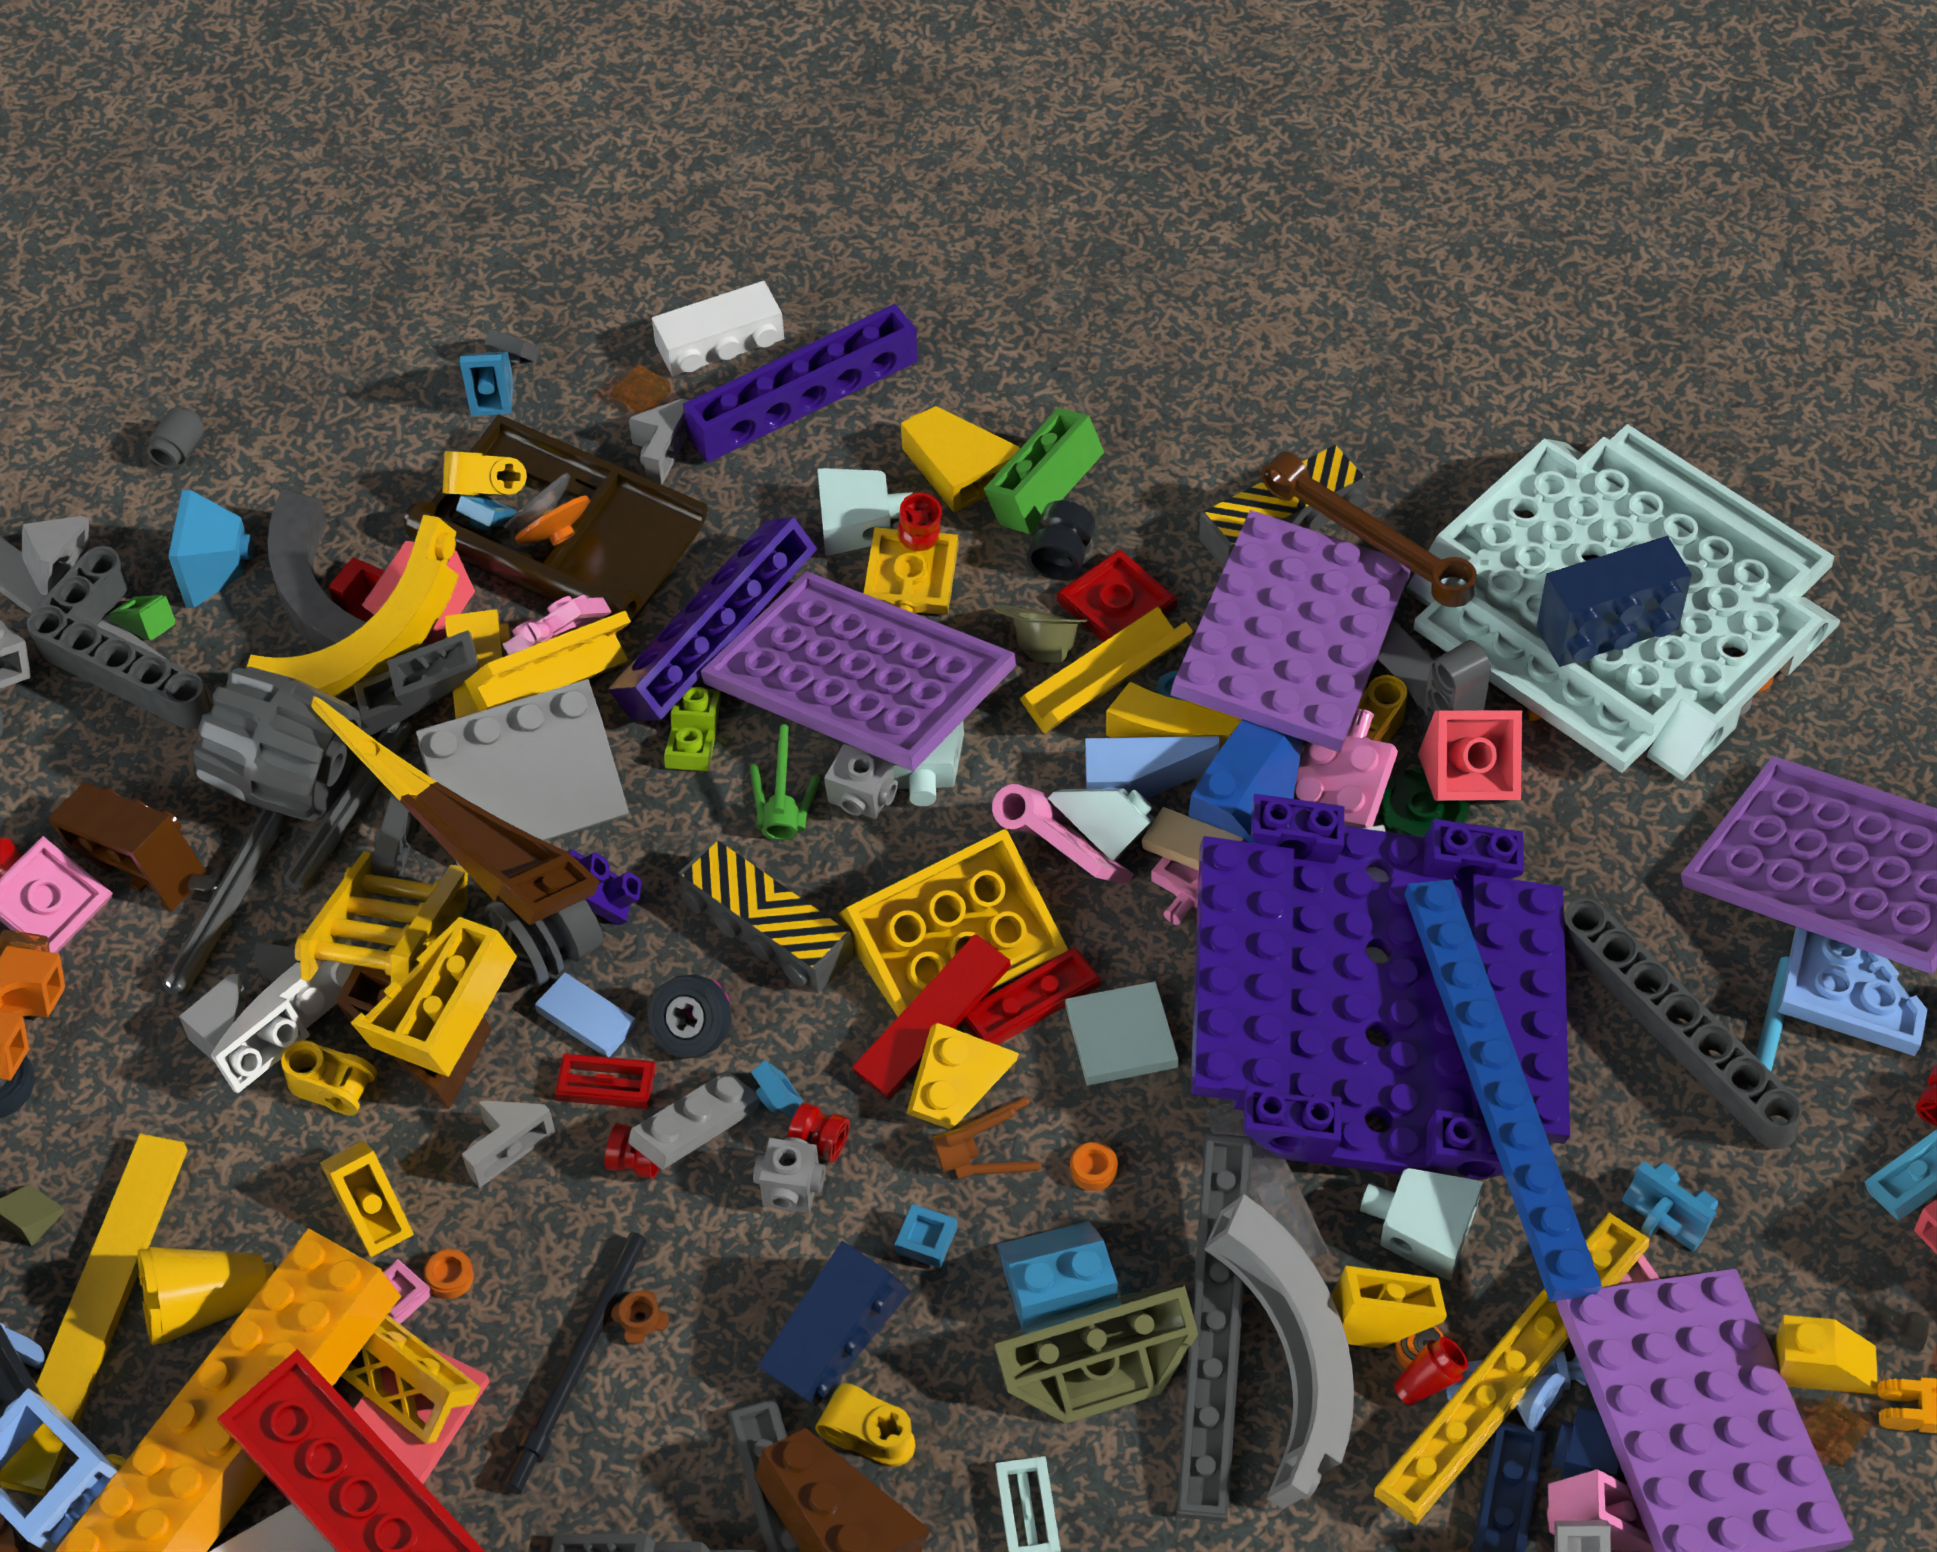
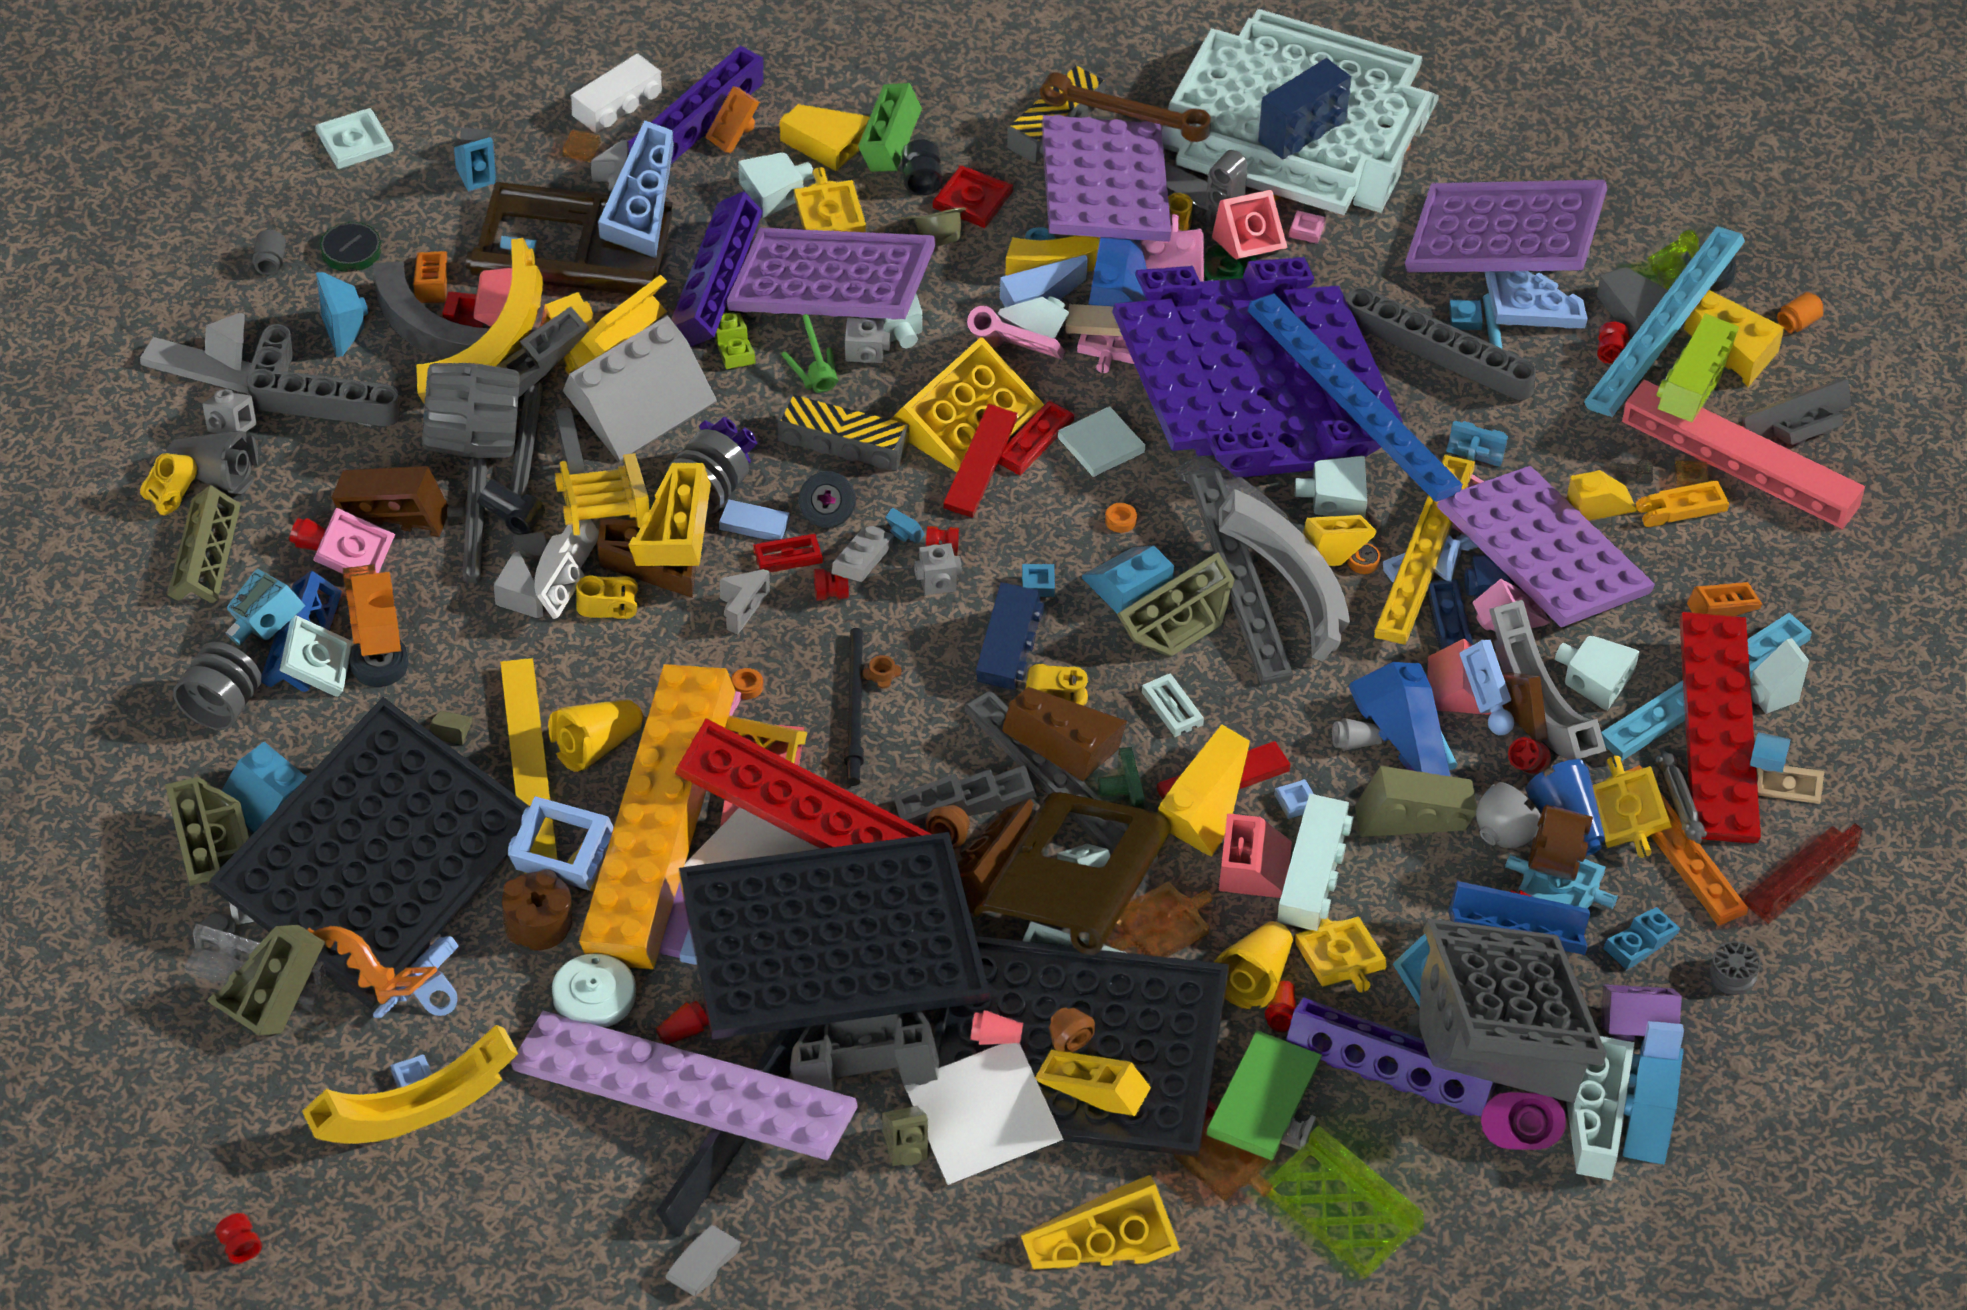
camera: 25 degrees left, 5 degrees down
(144, 616) = (315, 364): bright green slope -> none
(279, 908) = (518, 511): none -> black piece
(283, 456) = (350, 246): none -> black tile
(344, 545) = (431, 281): none -> orange slope
(367, 1198) = (668, 644): yellow slope -> none
(368, 306) = (354, 138): none -> light aqua tile
(477, 474) = (508, 219): yellow piece -> none
(501, 858) = (682, 428): reddish brown plate -> none
(540, 504) = (559, 230): clear dish -> none
(554, 524) = (579, 239): orange dish -> none
(564, 617) = (627, 284): bright pink plate -> none
(659, 481) = (638, 198): none -> light blue wedge
(843, 405) = (733, 120): none -> orange tile
(919, 521) = (828, 175): red wheel -> none
(955, 1075) = (1011, 488): yellow wing -> none
(958, 1146) = (1033, 528): dark orange plant -> none
(1103, 669) = (987, 237): yellow fence -> none
(1431, 1371) = (1378, 565): red cone -> none
(1565, 774) = (1307, 227): none -> bright pink tile
(1741, 981) = (1465, 314): none -> dark azure plate
(1836, 1430) = (1622, 534): clear orange tile -> none

